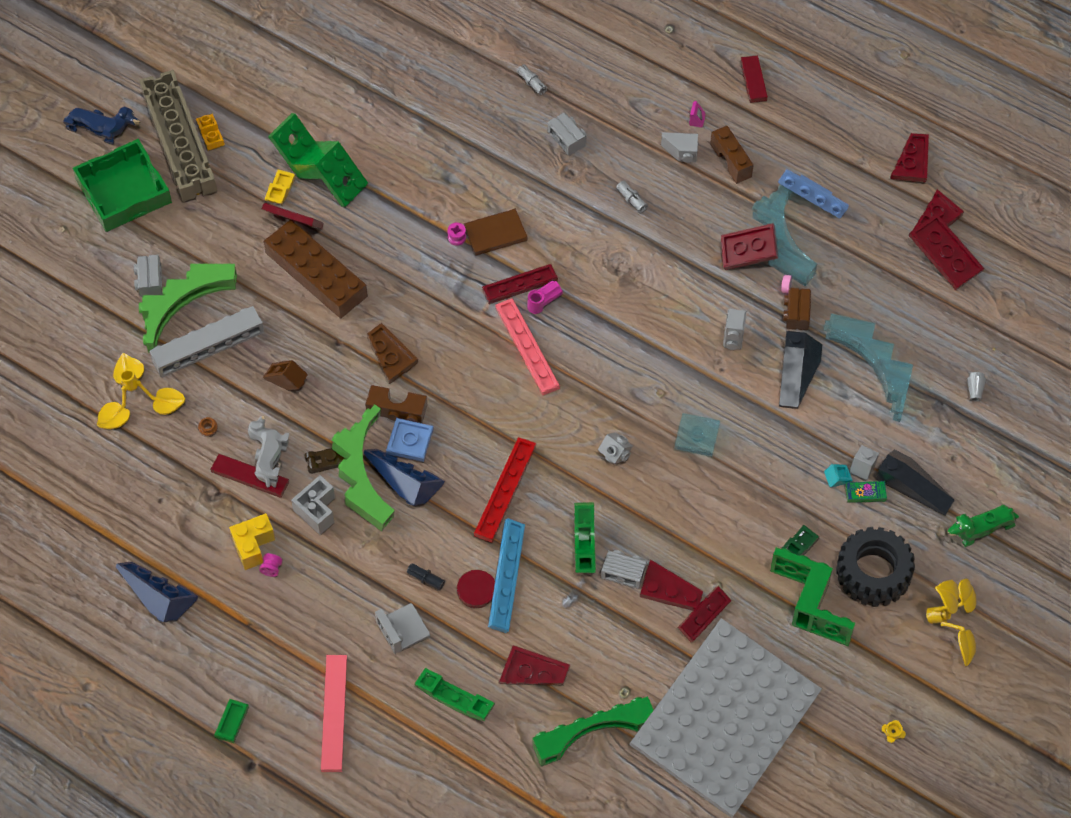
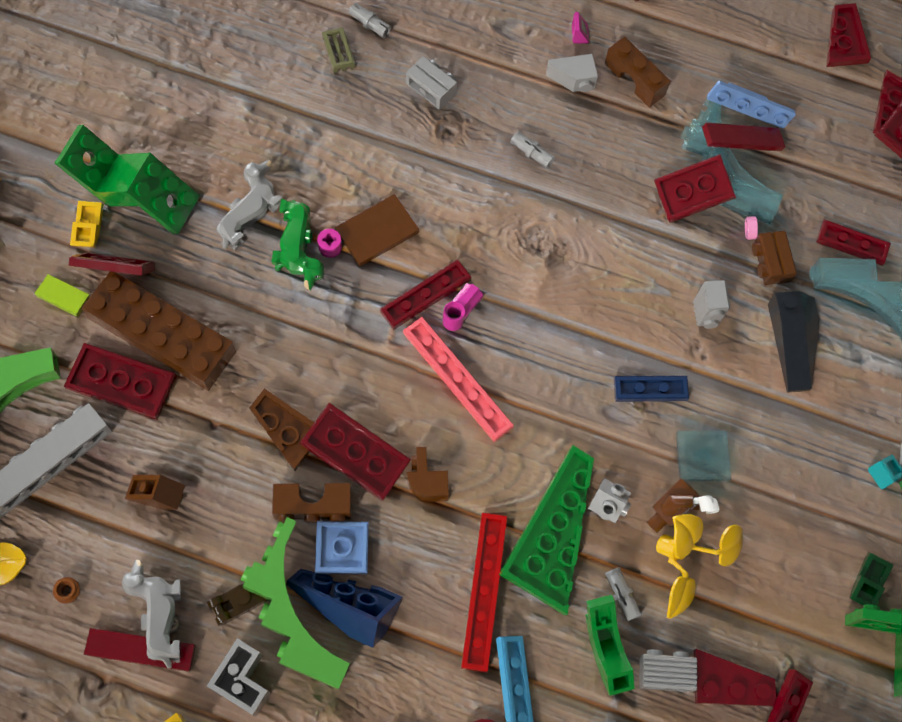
camera: 20 degrees left, 10 degrees up
(250, 232) = (62, 295): none -> lime tile
(278, 299) = (120, 381): none -> dark red tile
(404, 197) = (251, 207): none -> light grey animal
(430, 228) = (294, 244): none -> green animal
(436, 378) = (355, 451): none -> dark red tile
(483, 410) = (425, 484): none -> reddish brown brick
(502, 108) = (343, 64): none -> olive tile
(563, 466) = (551, 540): none -> green wing
(607, 513) = (623, 594): none -> light grey pin
(656, 470) = (687, 532): none -> yellow plant
(665, 458) = (678, 501): none -> reddish brown torso
(672, 382) = (651, 388): none -> dark blue tile
(800, 216) = (743, 137): none -> dark red tile
(867, 311) = (853, 242): none -> dark red tile

